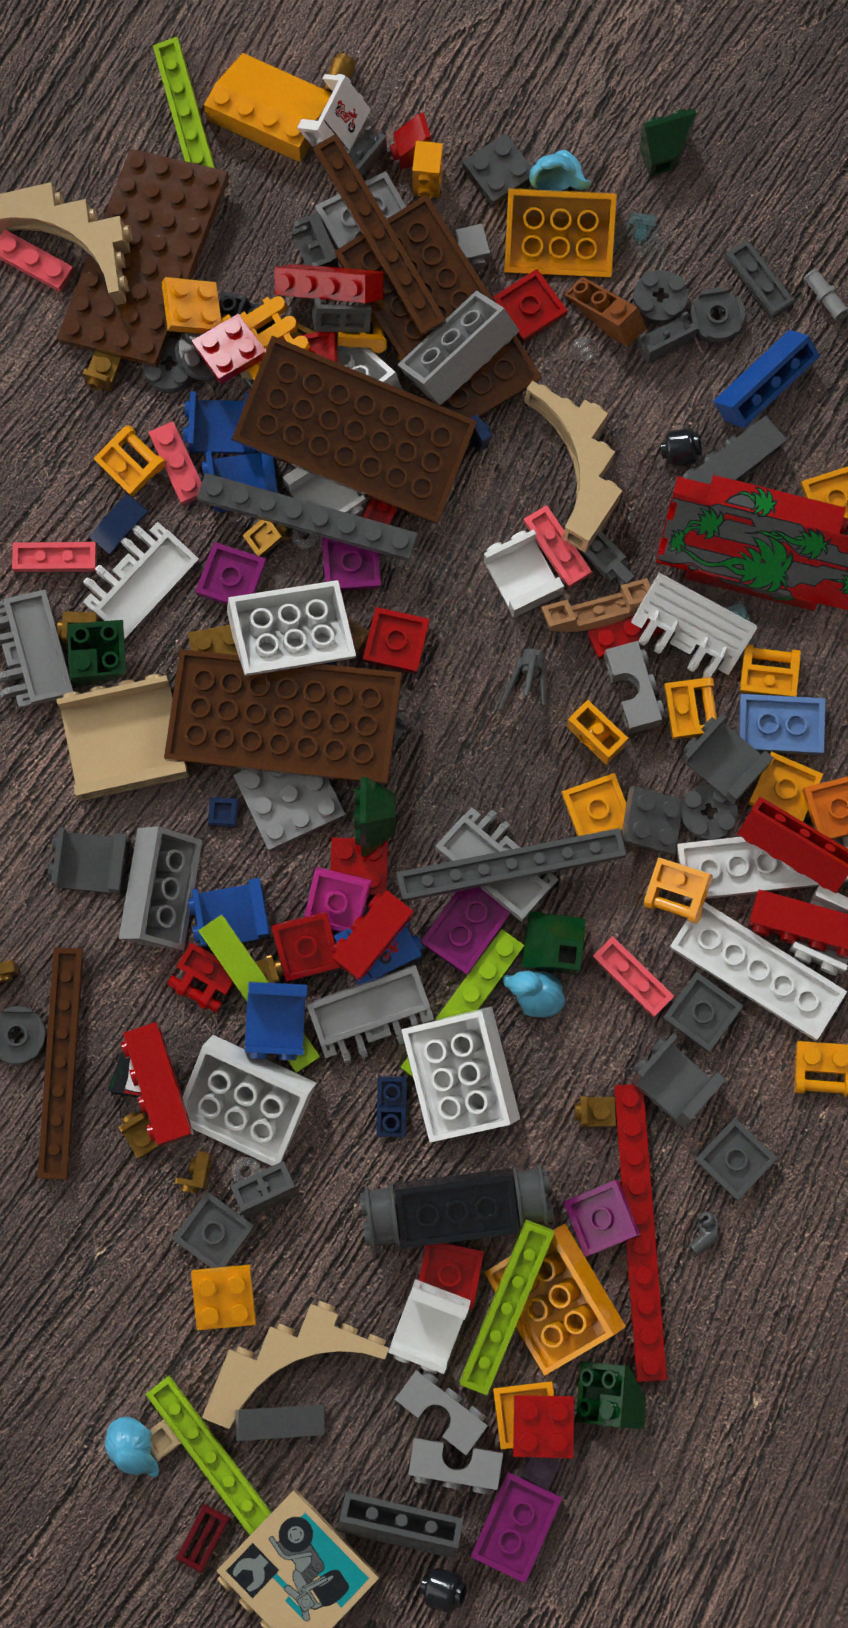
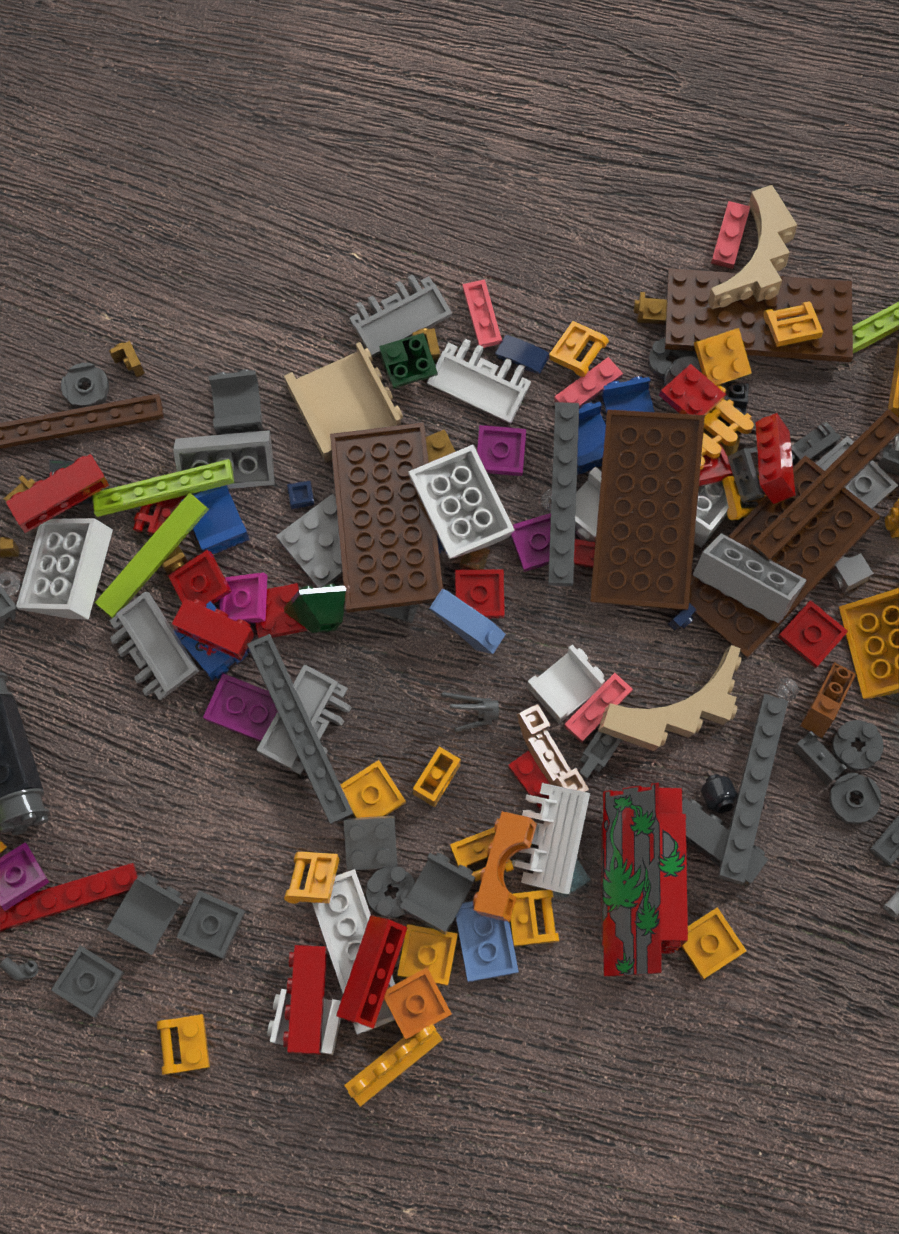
camera: 75 degrees right, 5 degrees down
(179, 963) = (163, 488): none -> lime tile
(180, 220) = (793, 329): none -> light orange plate
(266, 536) = (541, 468): pearl gold bracket -> none
(275, 1020) = (130, 572): blue panel -> none
(391, 1106) = (82, 685): dark blue slope -> none
(434, 655) = (467, 622): none -> medium blue slope
(461, 1074) = (115, 732): white slope -> none
(480, 980) = (177, 722): lime plate -> none
(536, 992) = (200, 779): medium azure hair -> none
(554, 943) = (245, 785): dark green slope -> none
(595, 1111) = (107, 851): pearl gold bracket -> none
(629, 664) = (469, 813): light grey arch -> none
(633, 976) = (230, 857): coral plate -> none
(682, 665) = (511, 836): none -> orange arch
(686, 410) = (752, 790): none -> dark grey plate
(759, 971) = (257, 967): white plate -> none
(766, 378) = (806, 854): blue brick -> none

